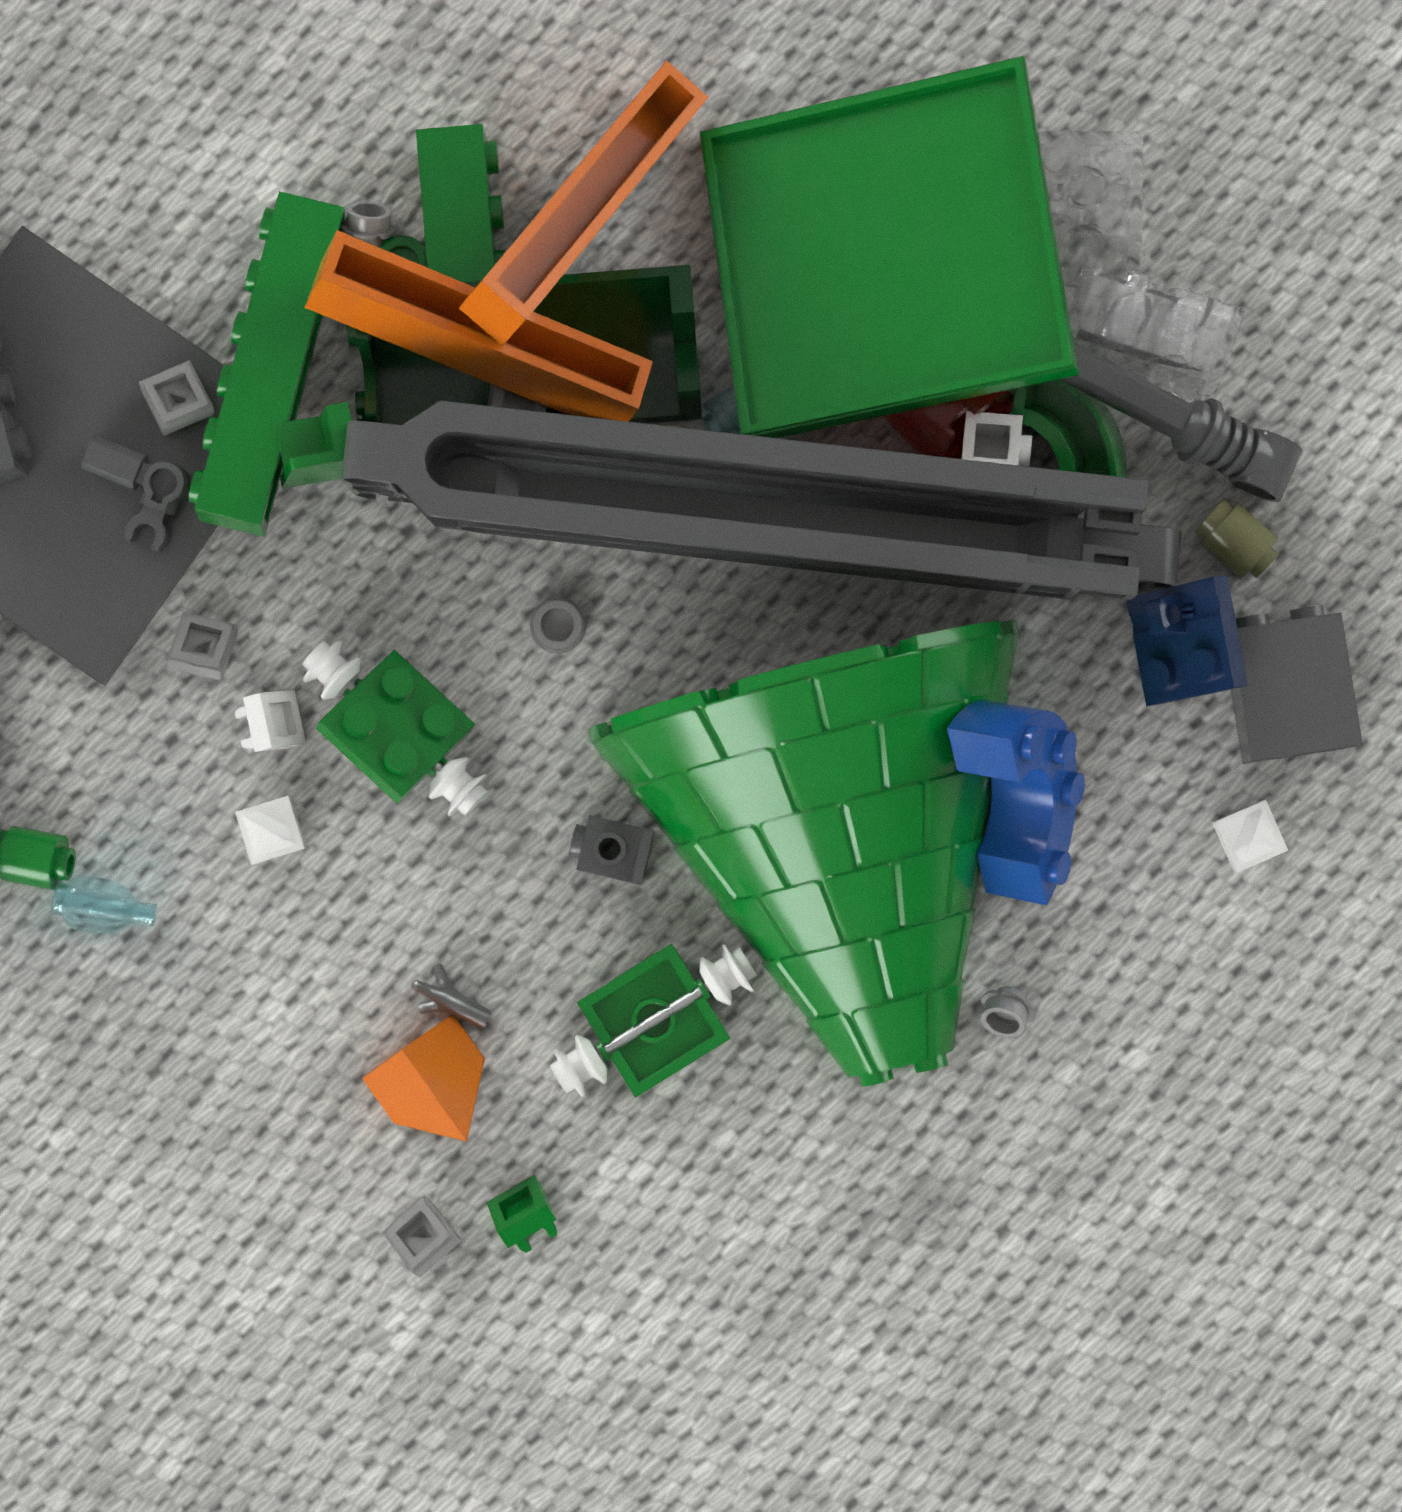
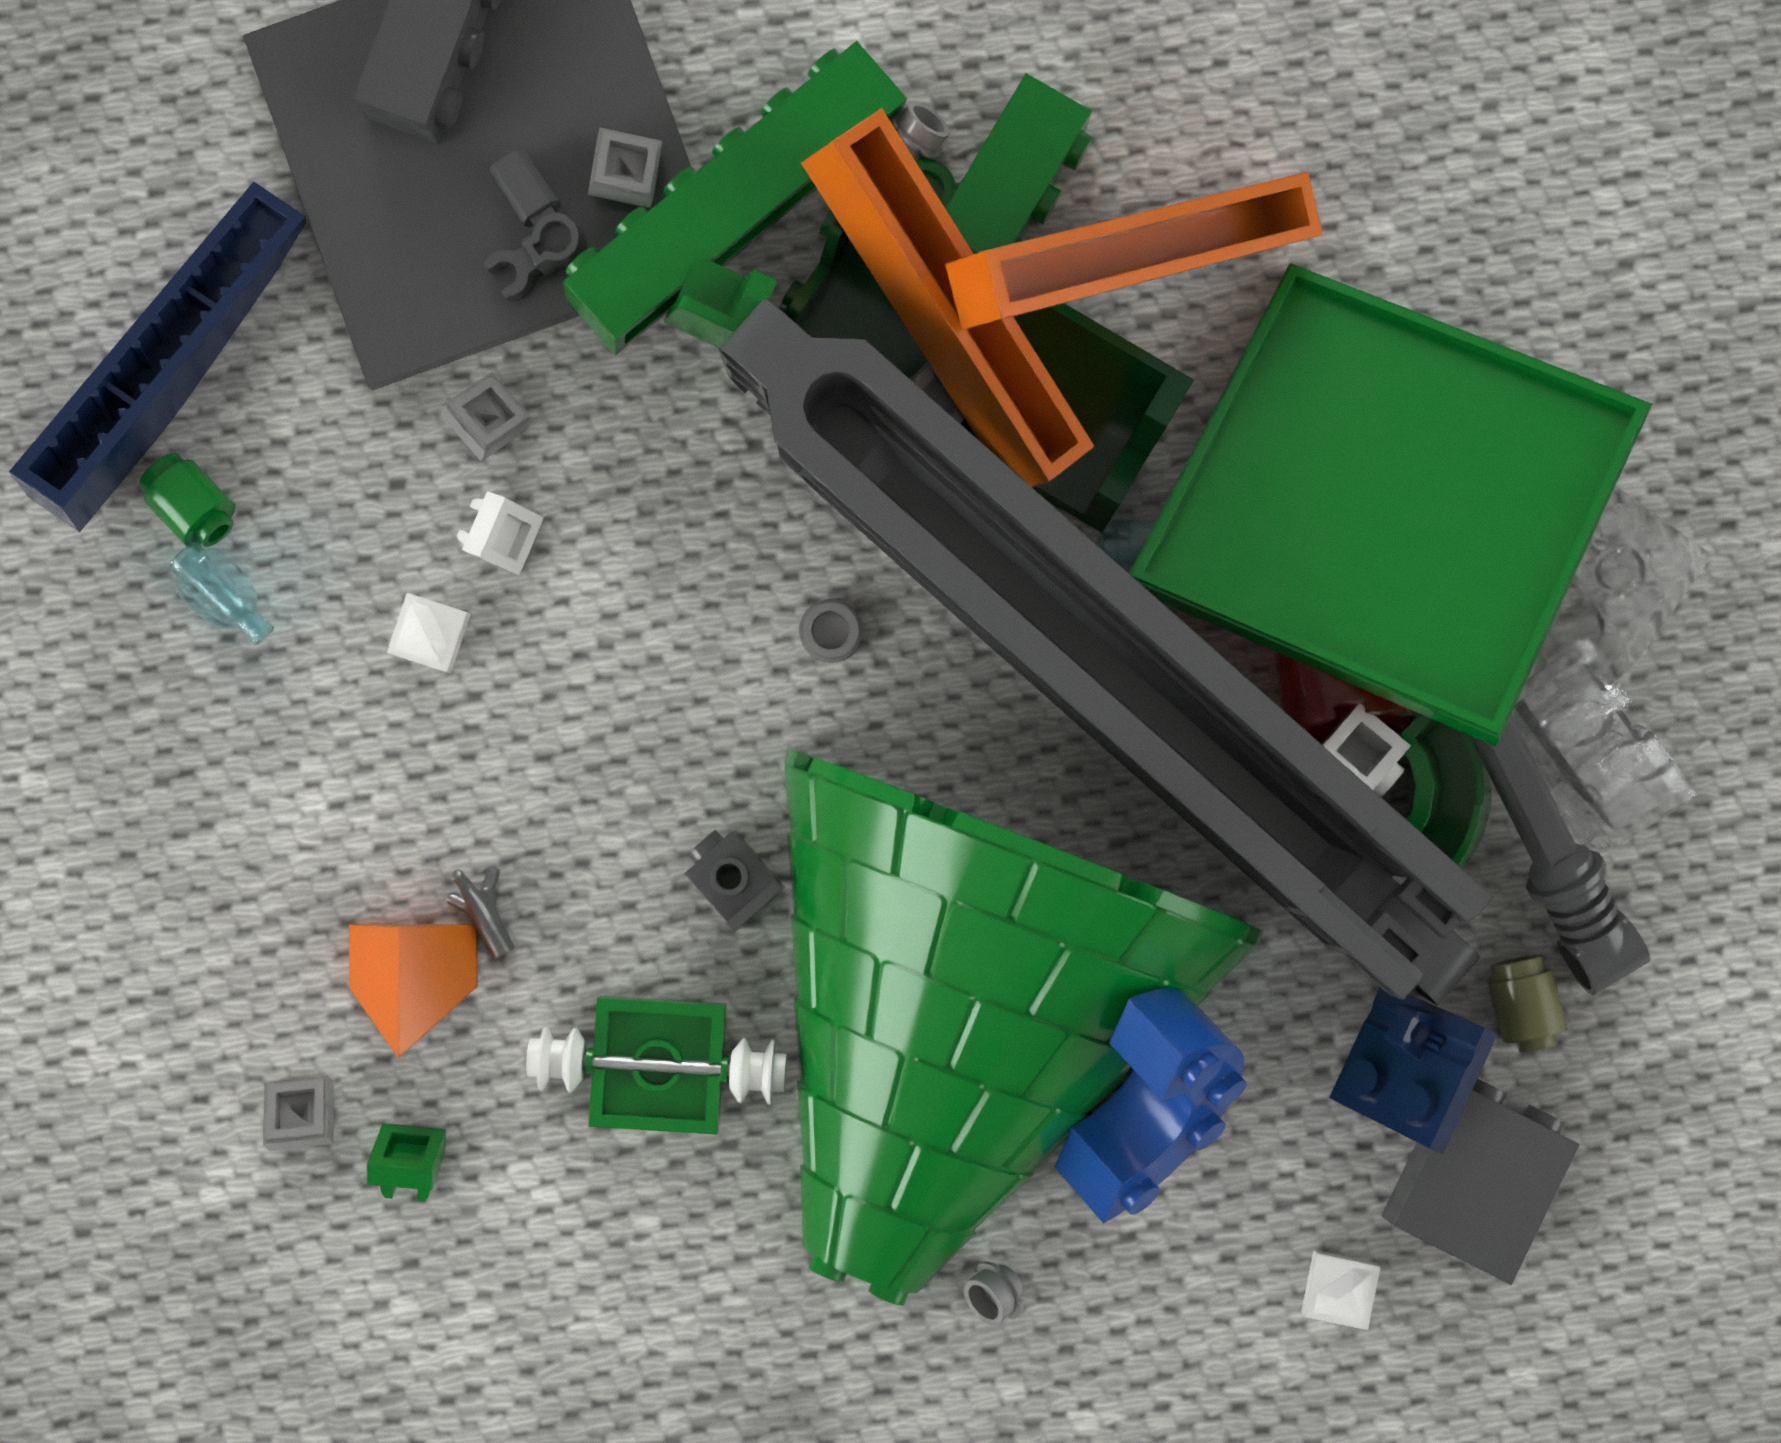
camera: 30 degrees right, 0 degrees up
(395, 726) = (610, 618): green plate -> none

